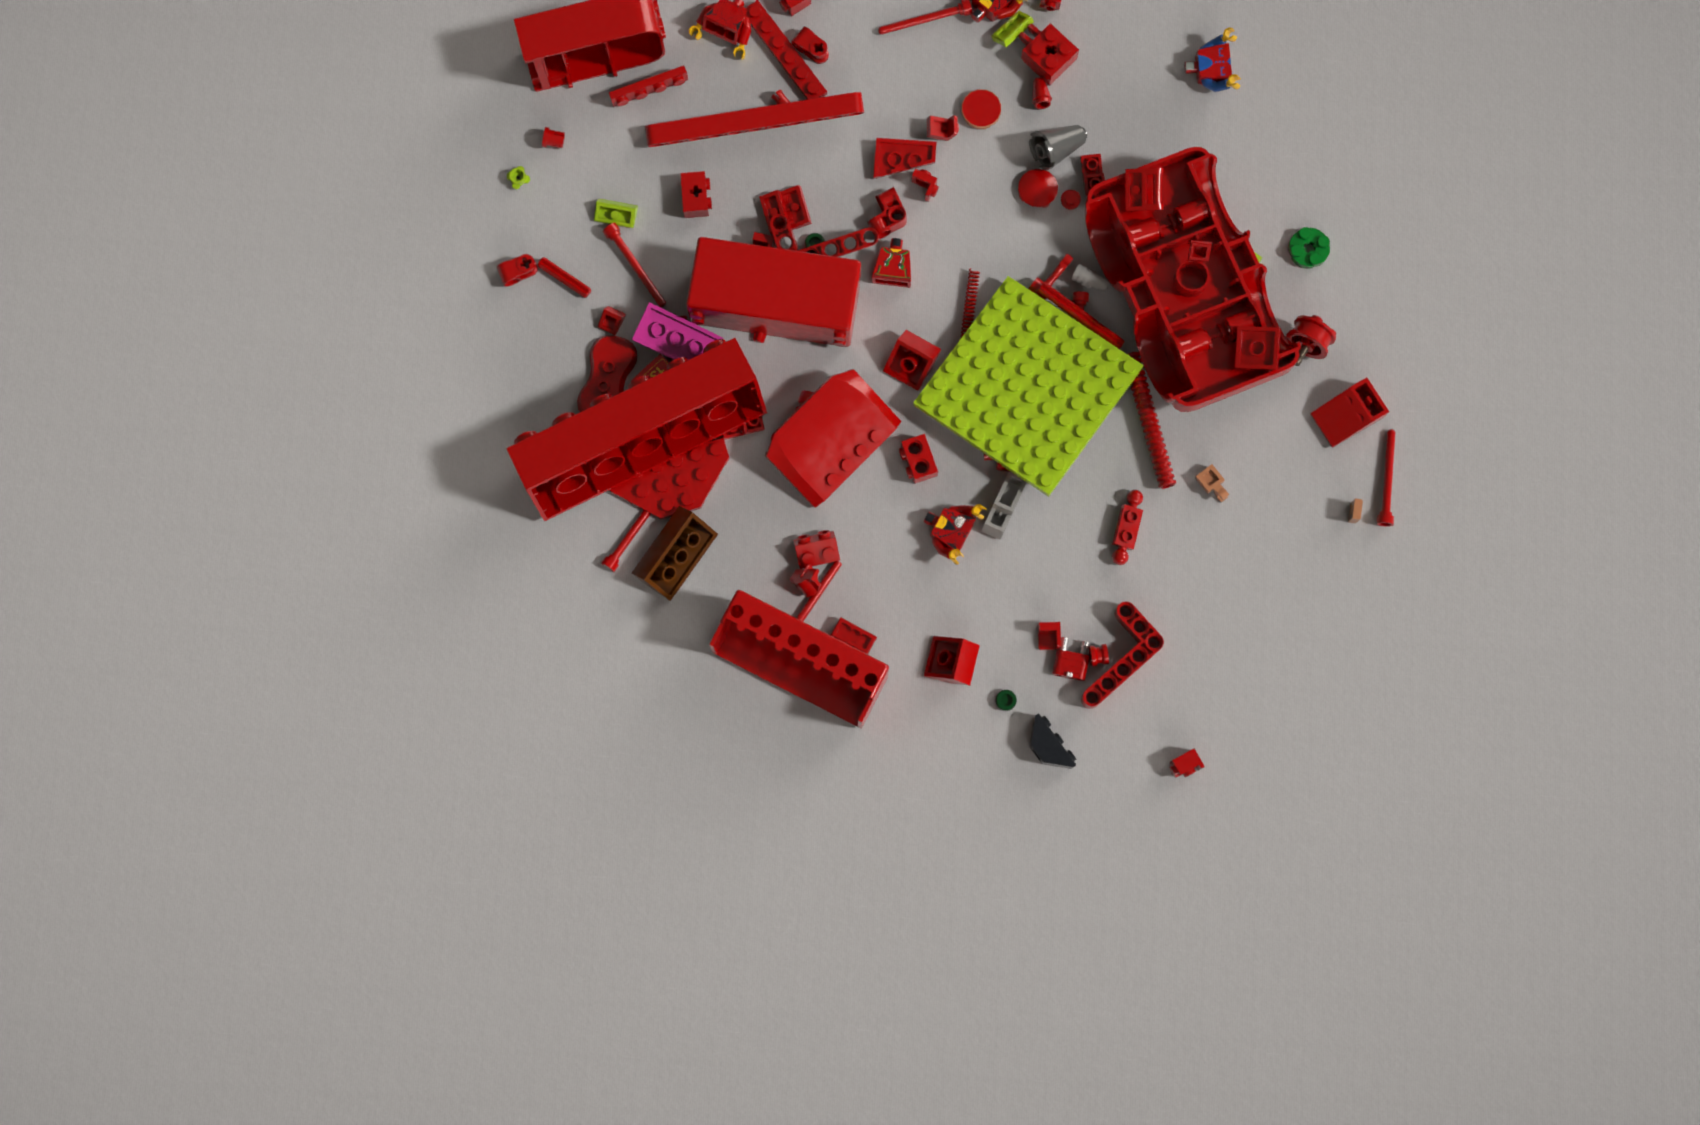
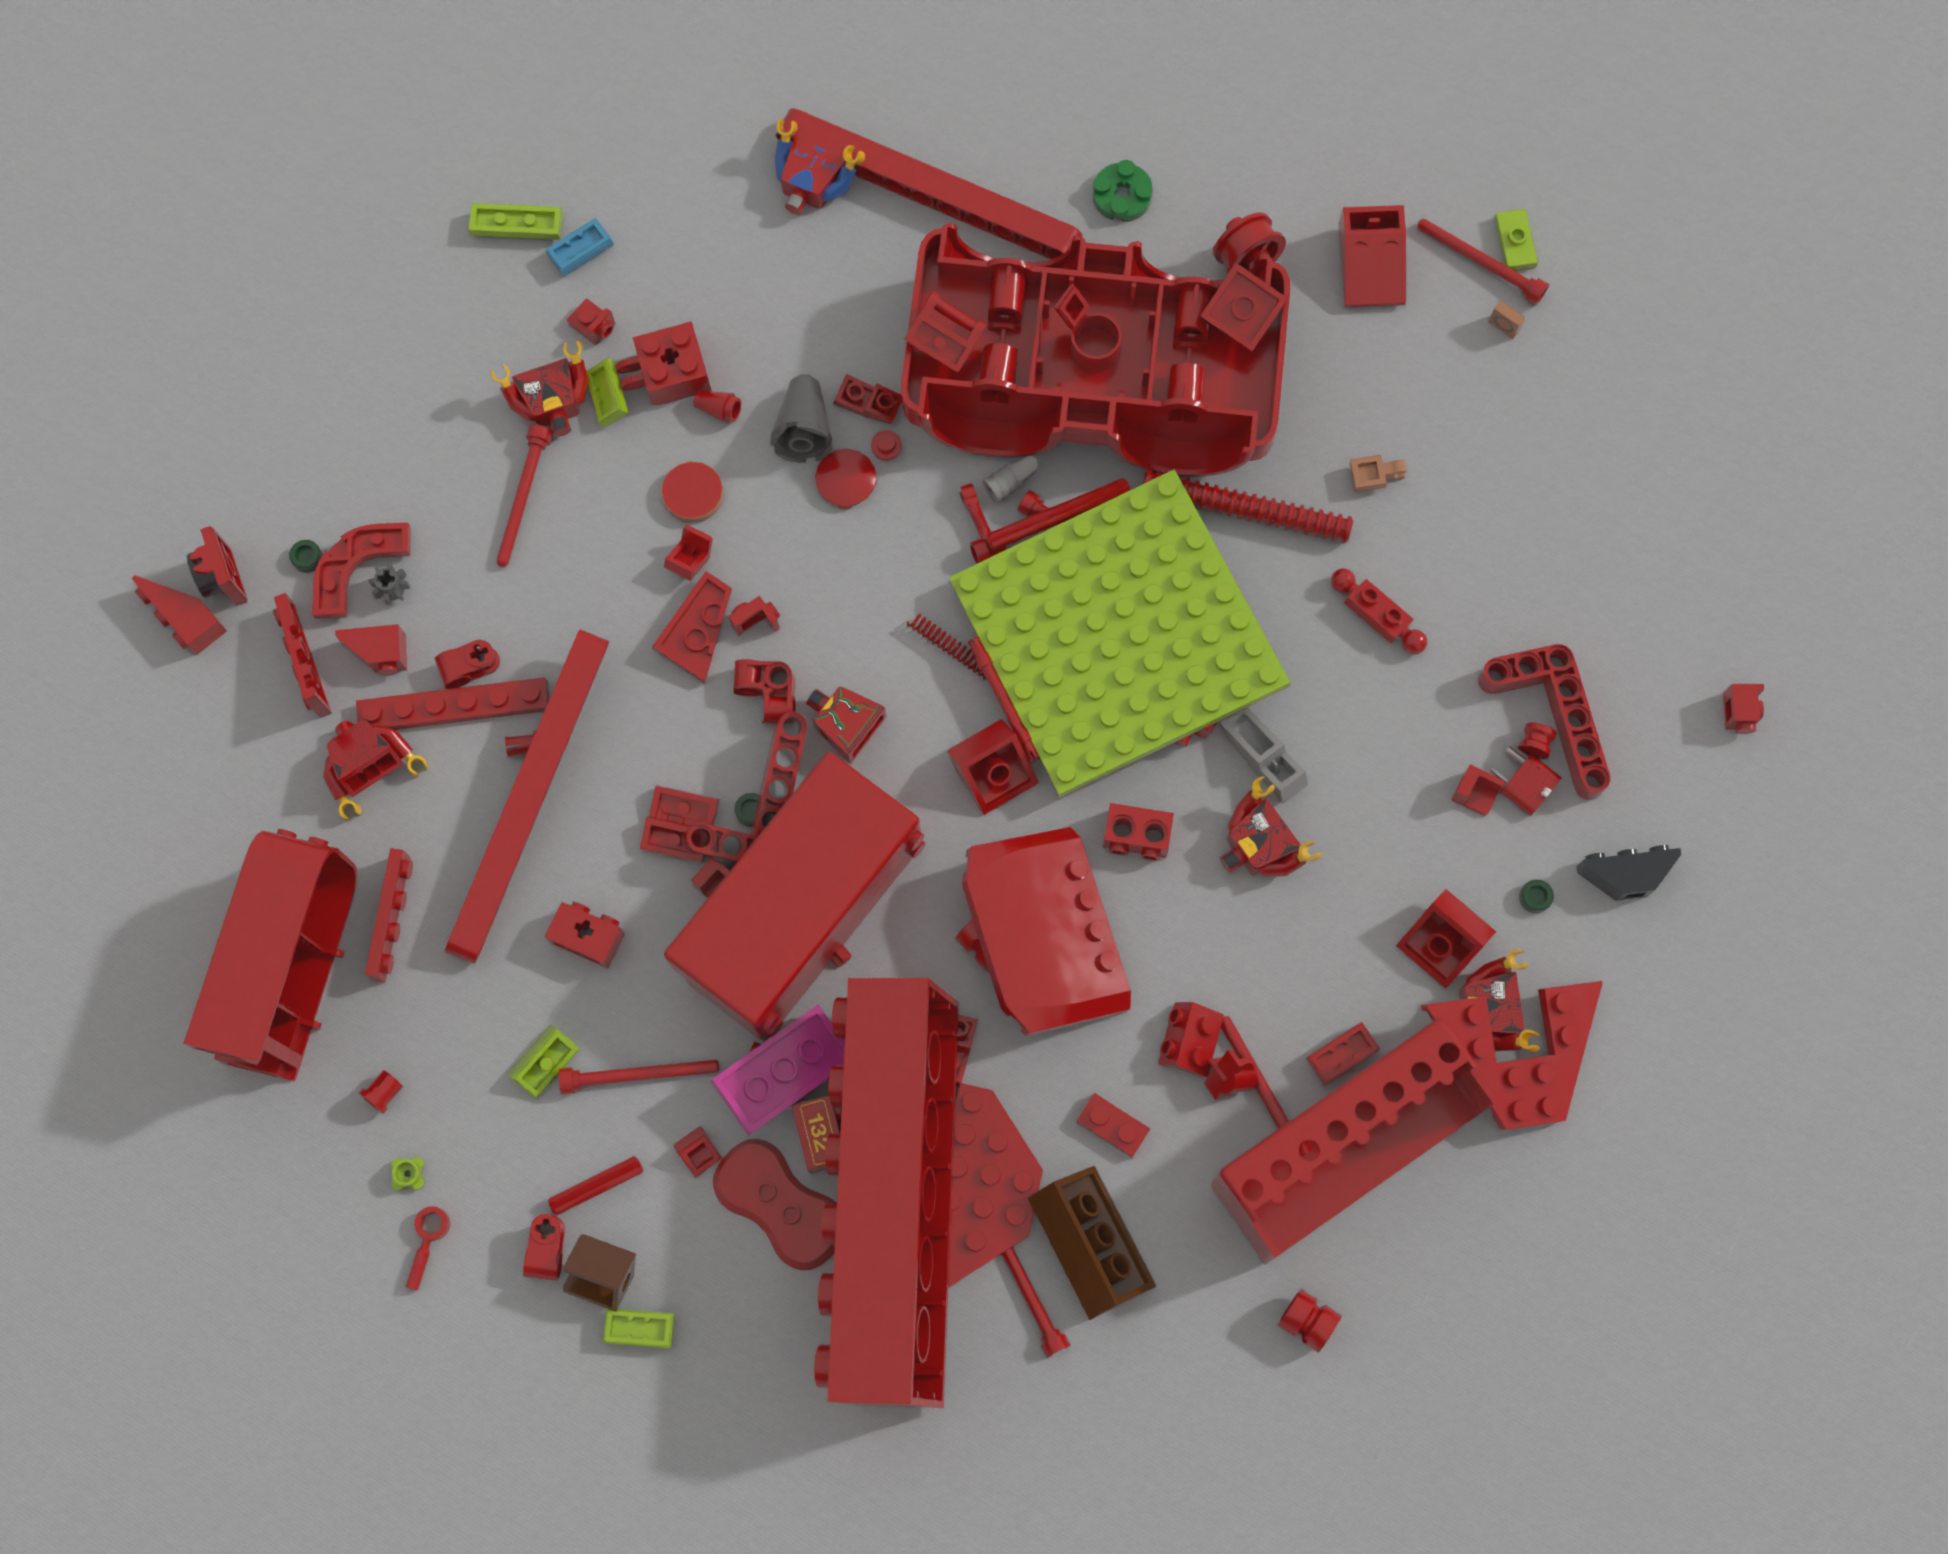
camera: 60 degrees left, 5 degrees down
(481, 209) = (423, 1252): none -> red piece
(501, 341) = (639, 1328): none -> lime plate
(518, 303) = (599, 1272): none -> reddish brown piece
(694, 690) = (1309, 1320): none -> red wheel
(745, 532) = (1113, 1125): none -> red plate
(887, 745) = (1531, 1088): none -> red wing
(925, 704) = (1503, 1001): none -> torso
(966, 324) = (985, 664): none -> red piece
(1246, 140) = (938, 188): none -> red beam
(1413, 492) = (1516, 239): none -> lime plate

